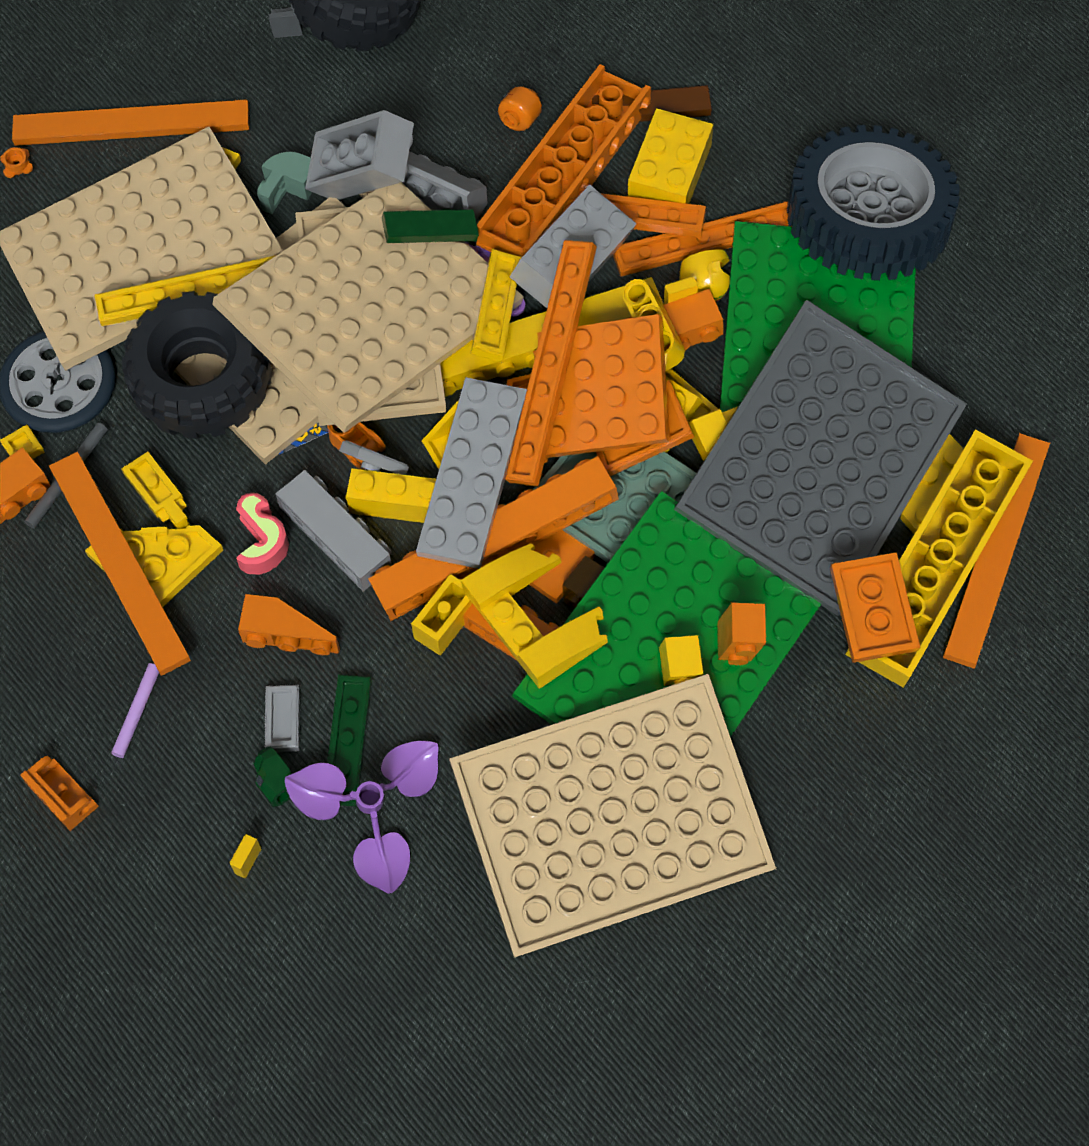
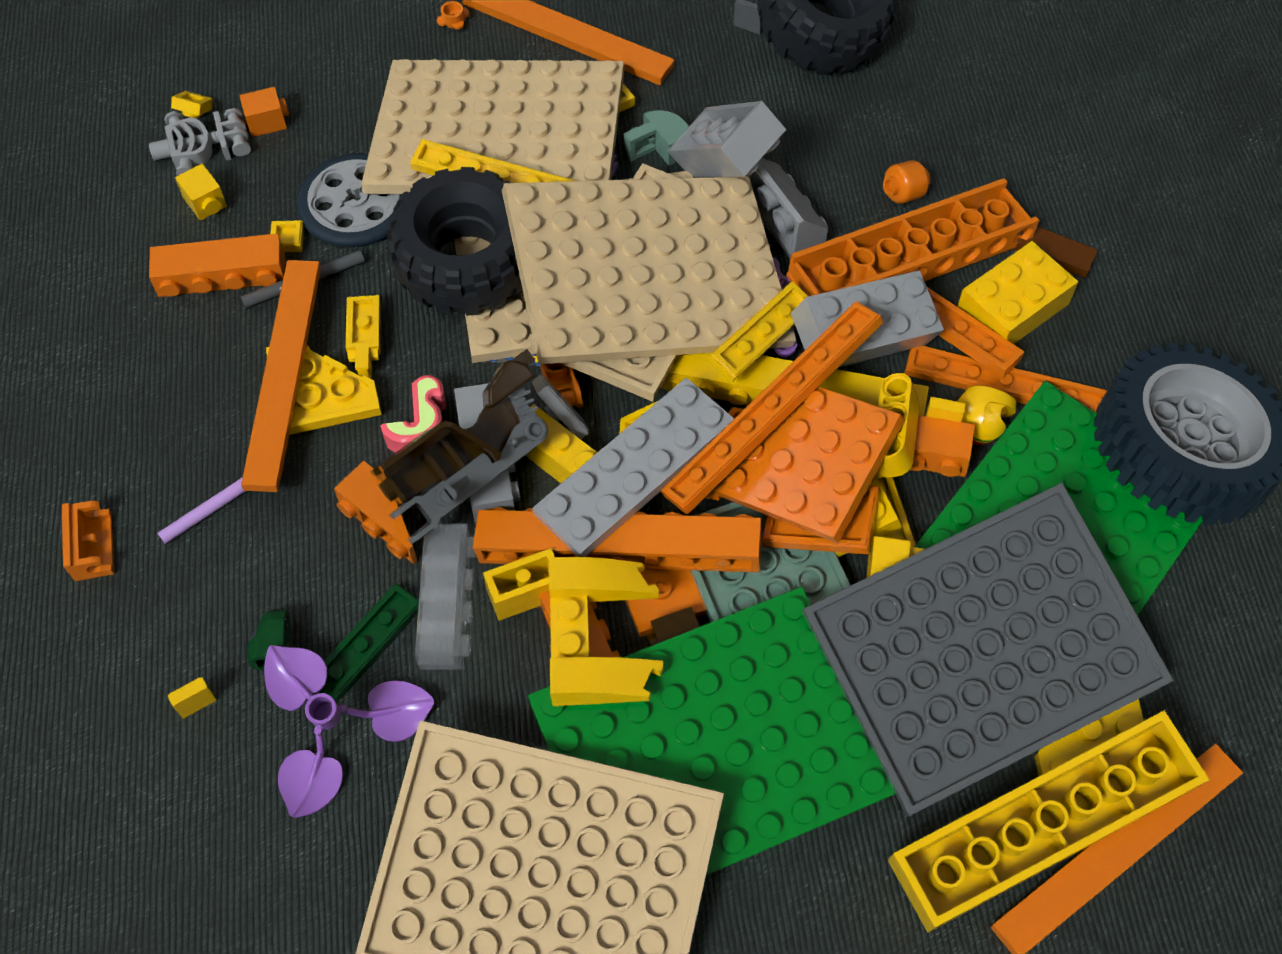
camera: 30 degrees right, 5 degrees down
(282, 718) = (320, 592): light grey tile -> none
(329, 557) = (465, 457): none -> dark brown piece
(386, 661) = (444, 597): none -> clear brick
(429, 226) = (747, 231): dark green tile -> none
(680, 659) = (709, 762): yellow brick -> none
(741, 632) = (785, 772): orange brick -> none
(874, 607) = (940, 831): orange plate -> none

